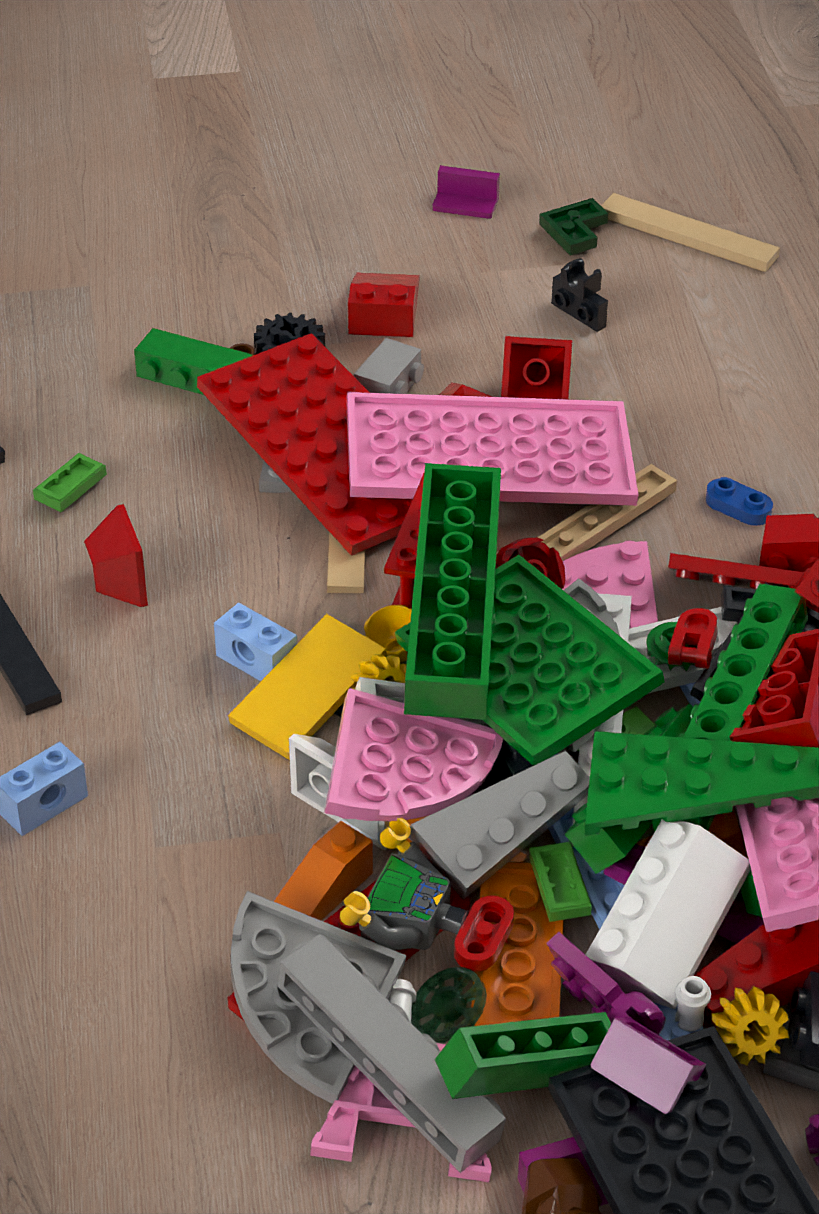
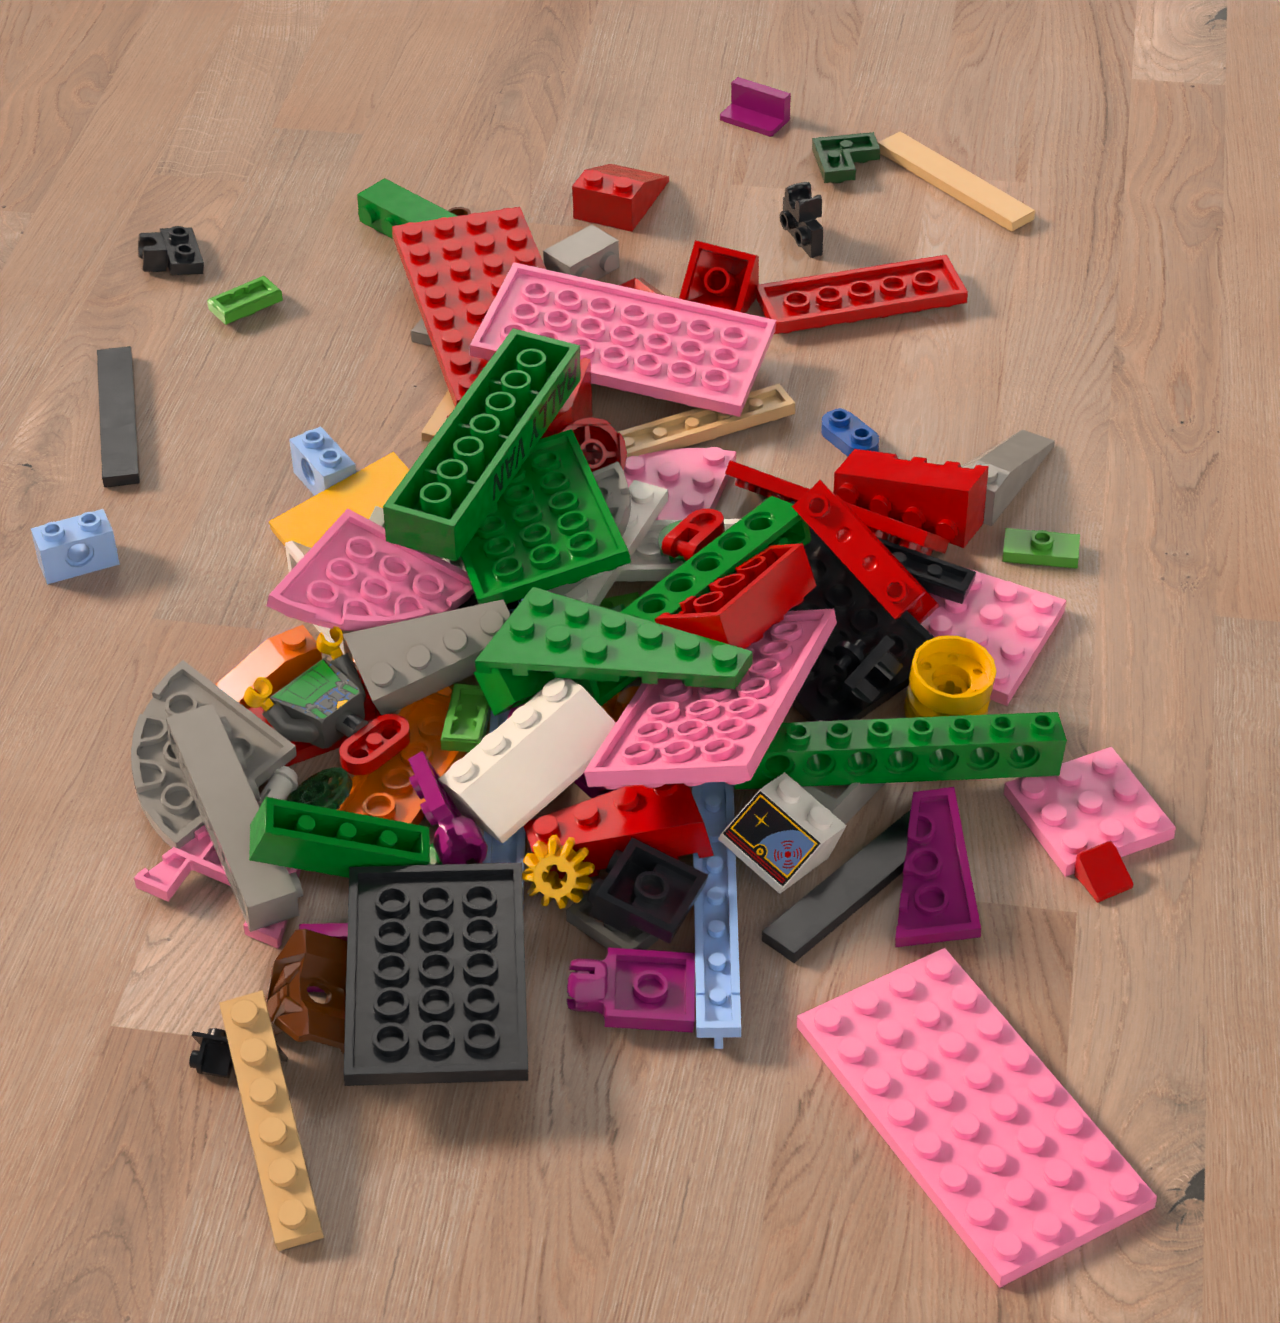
camera: 20 degrees right, 0 degrees up
(118, 559) = (242, 371): red slope -> none
(284, 330) = (530, 205): black gear -> none
(645, 1064) = (435, 873): panel -> none
(671, 358) = (861, 294): none -> red plate
(692, 998) = (514, 832): white pin -> none

